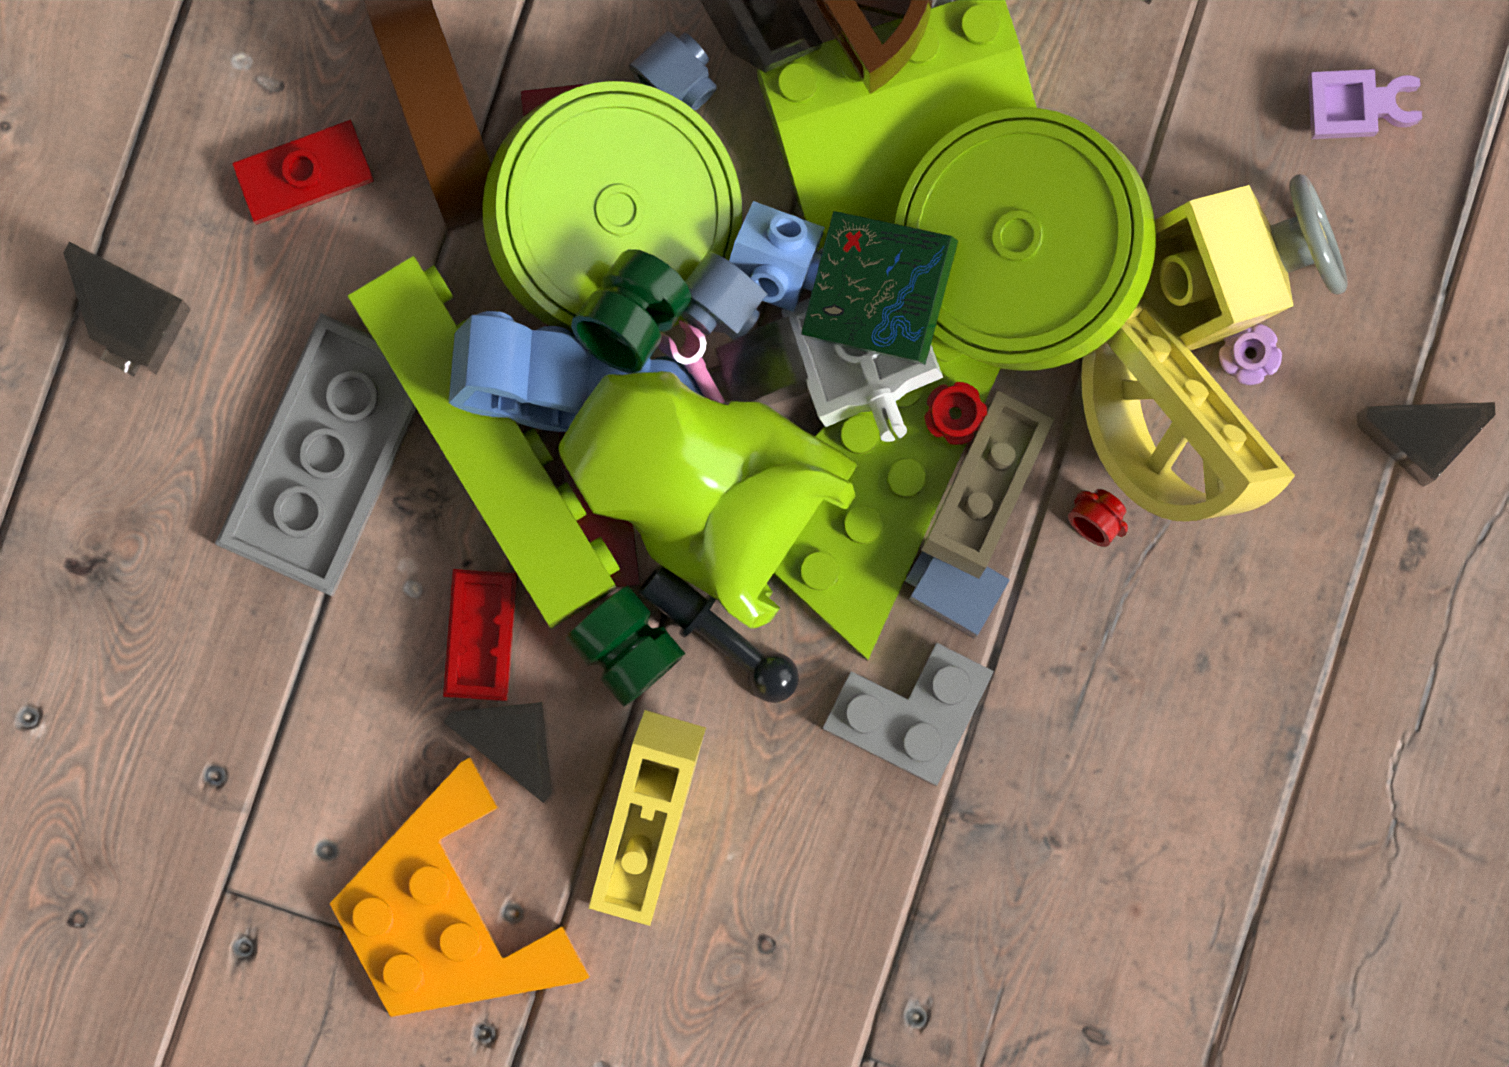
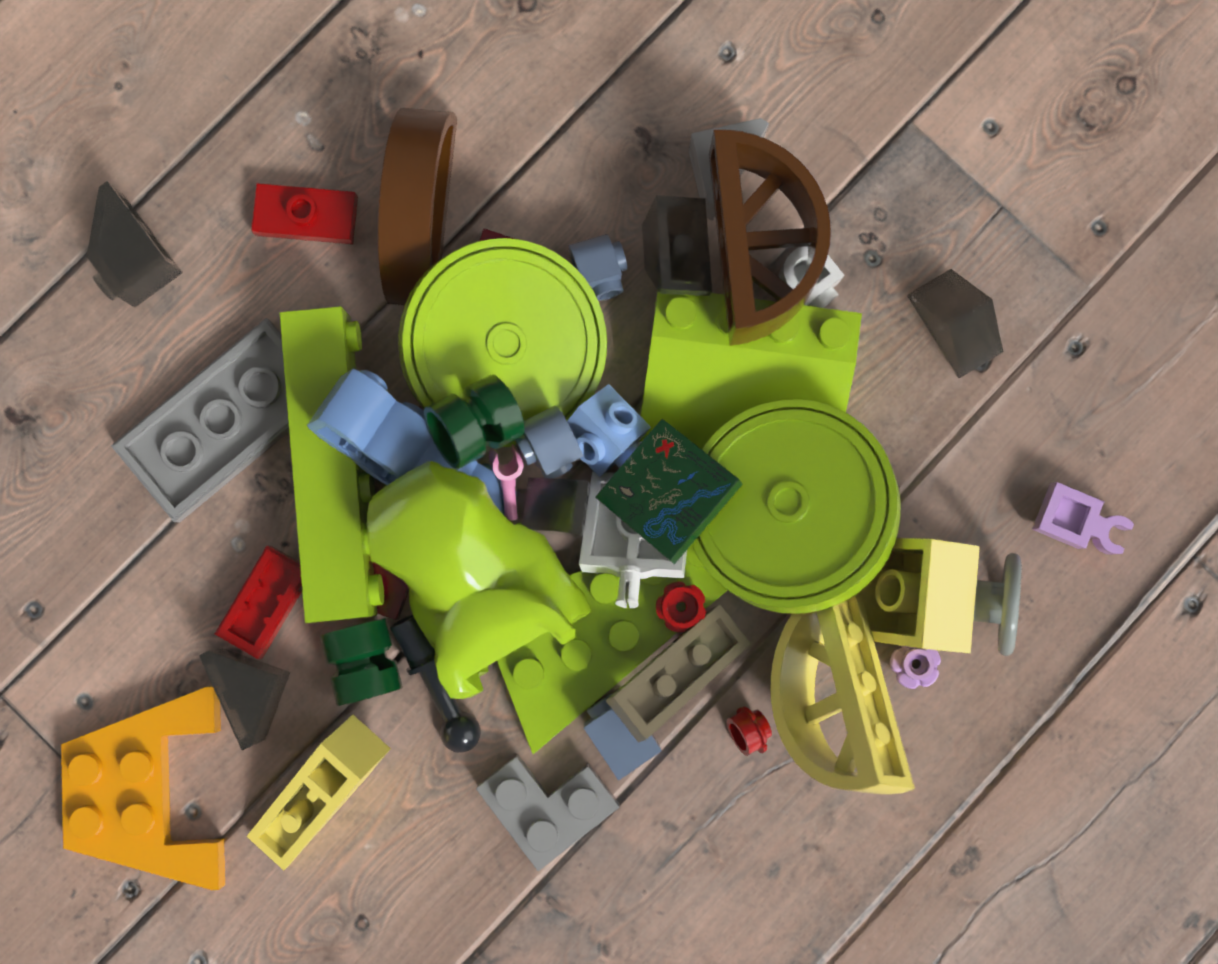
camera: 25 degrees right, 0 degrees up
(1425, 436) = (1016, 791): clear smoke slope -> none

